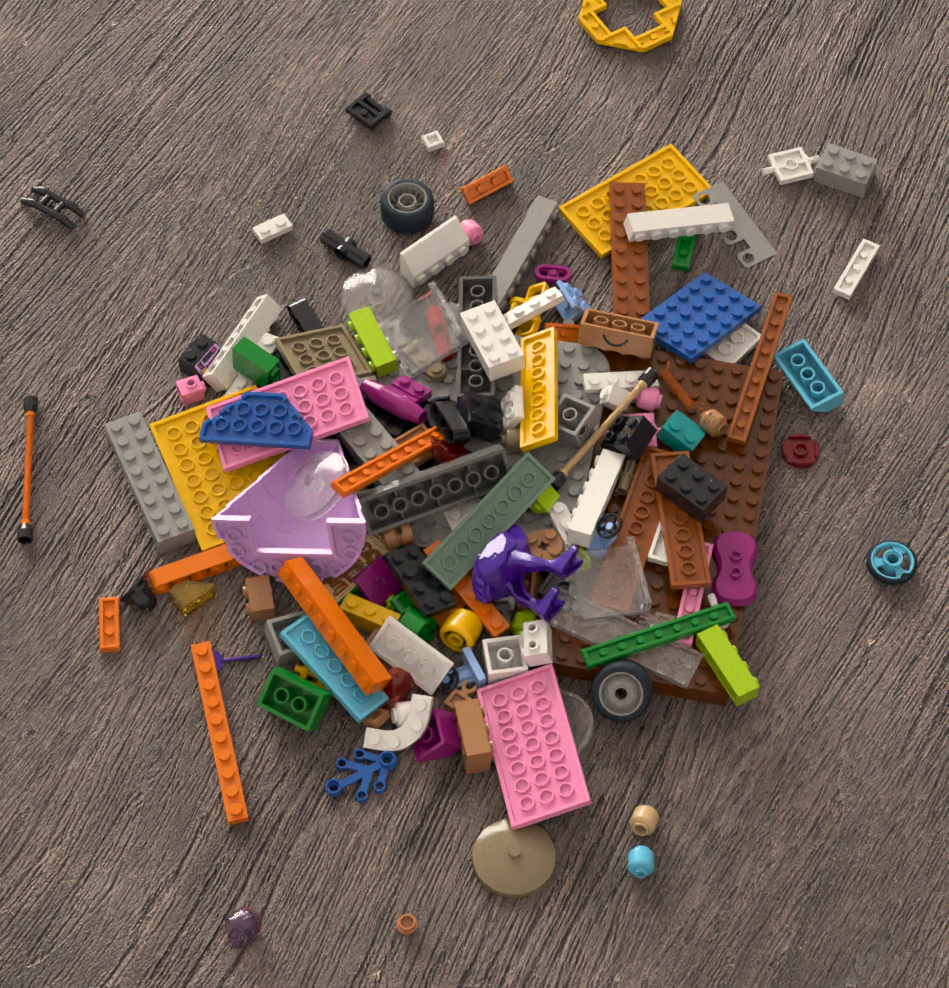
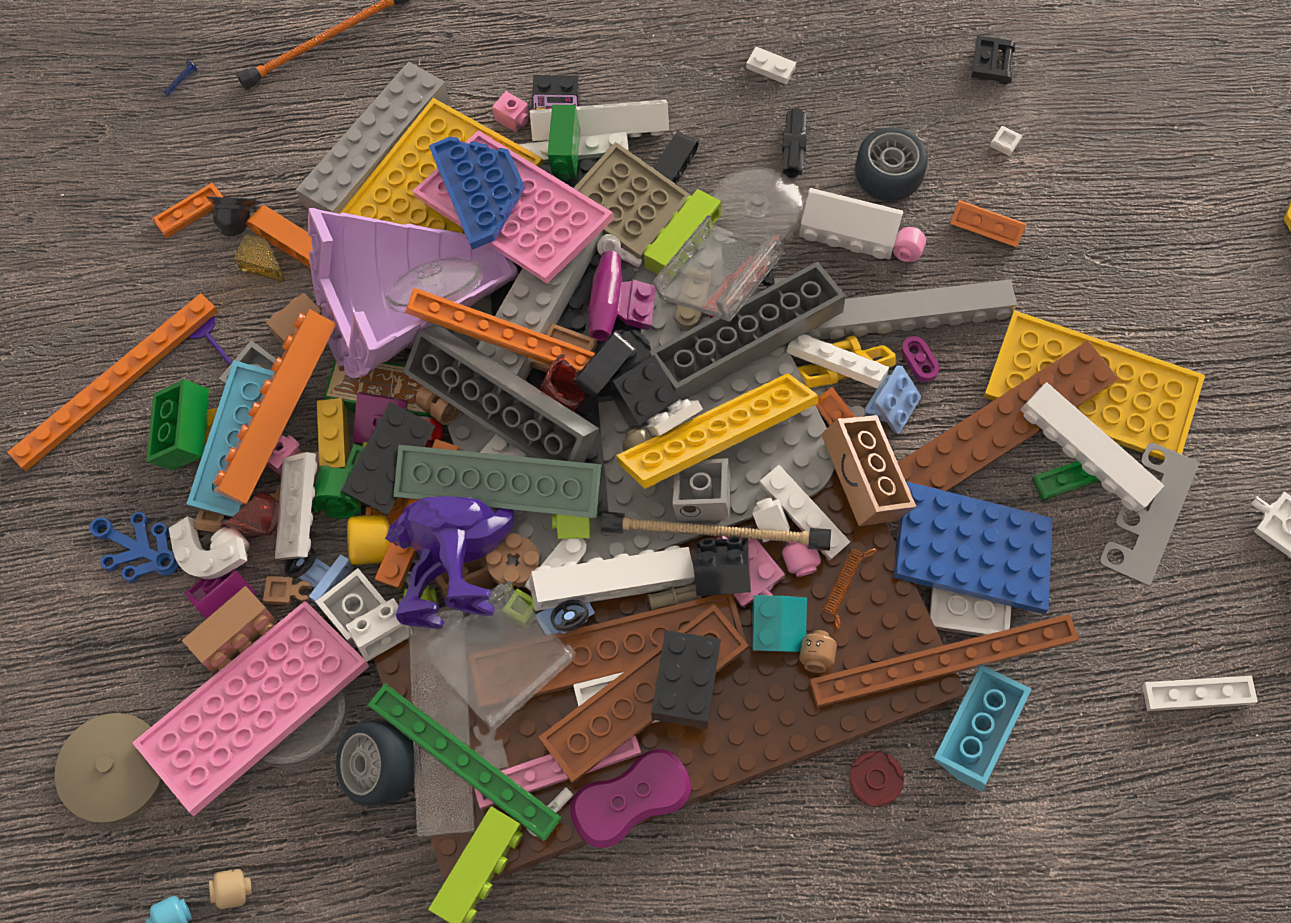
camera: 60 degrees right, 10 degrees up
(492, 340) = (742, 341): white brick -> none

